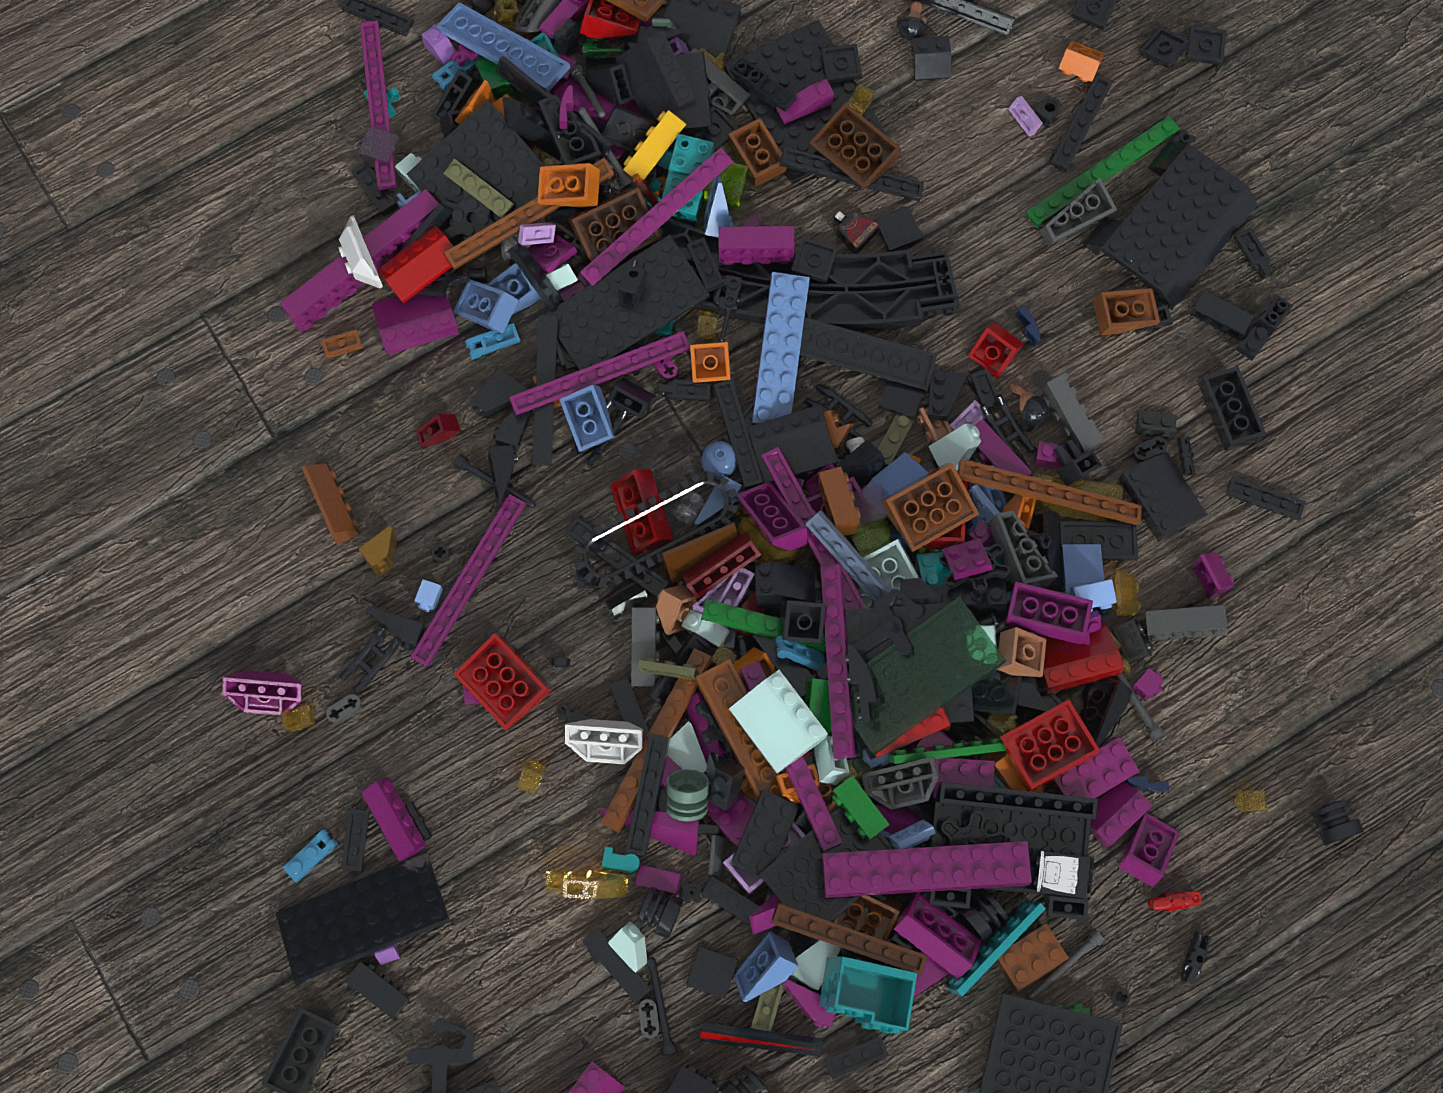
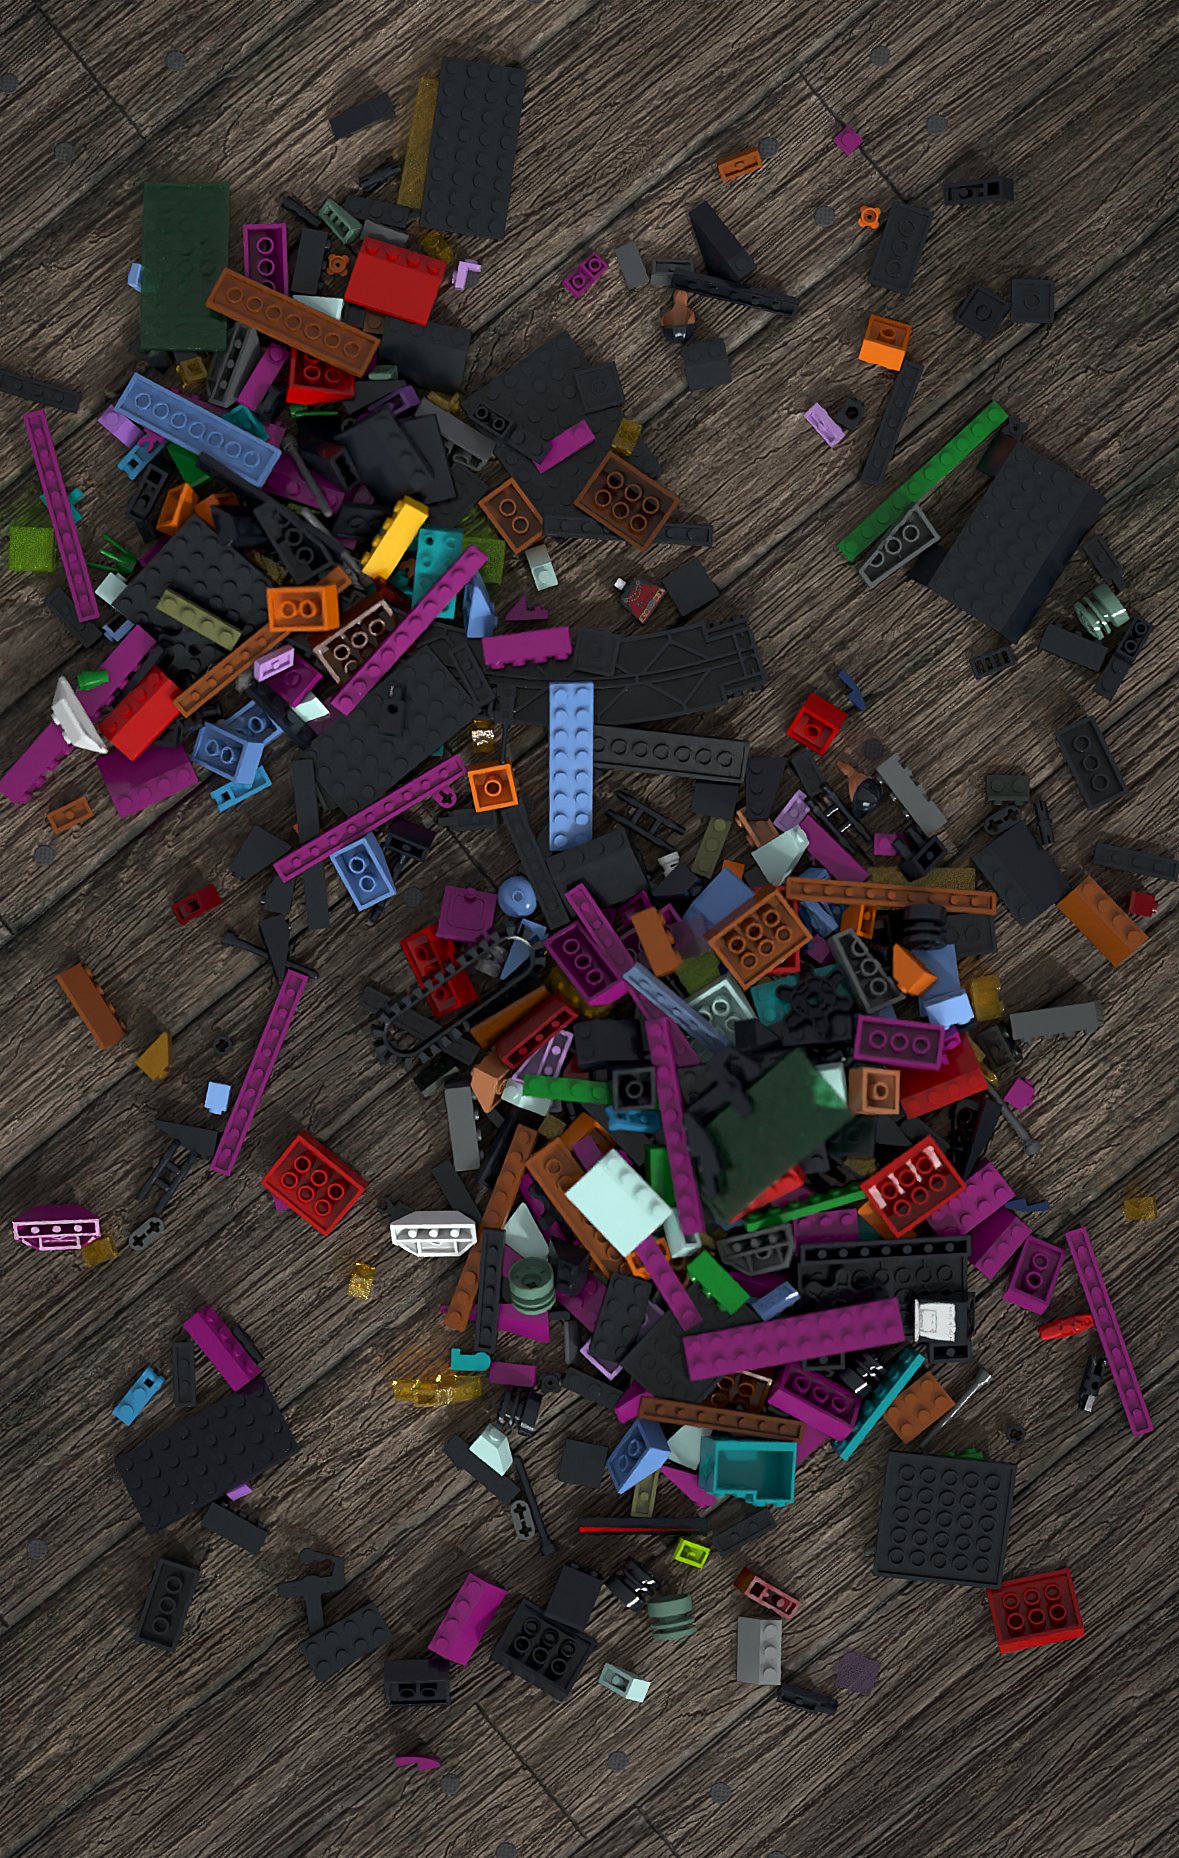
camera: 10 degrees left, 15 degrees up
(347, 129) = (32, 549): none -> clear neon green brick
(378, 224) = (91, 678): none -> green cone
(379, 145) = (72, 570): clear purple piece -> none
(424, 147) = (126, 563): none -> green plant
(560, 662) = (374, 1152): black tile -> none
(566, 105) = (287, 511): magenta slope -> none
(668, 669) = (493, 1153): olive plate -> none
(670, 470) = (465, 919): none -> magenta container
(775, 199) = (541, 567): none -> light aqua slope
(804, 1071) = (690, 1552): none -> lime slope
(837, 433) = (646, 851): dark orange slope -> none
(967, 559) = (804, 992): magenta plate -> none
(1064, 558) = (911, 972): none -> orange slope
(1077, 522) = (924, 927): none -> black wheel
(1125, 311) = (962, 658): dark orange slope -> none
(1212, 574) = (1083, 960): magenta slope -> none
(1215, 912) = (1109, 1331): none -> magenta plate
(1233, 540) = (1102, 921): none -> dark orange slope
(1249, 286) = (1103, 610): none -> sand green wheel
(1267, 532) = (1140, 904): none -> dark red slope

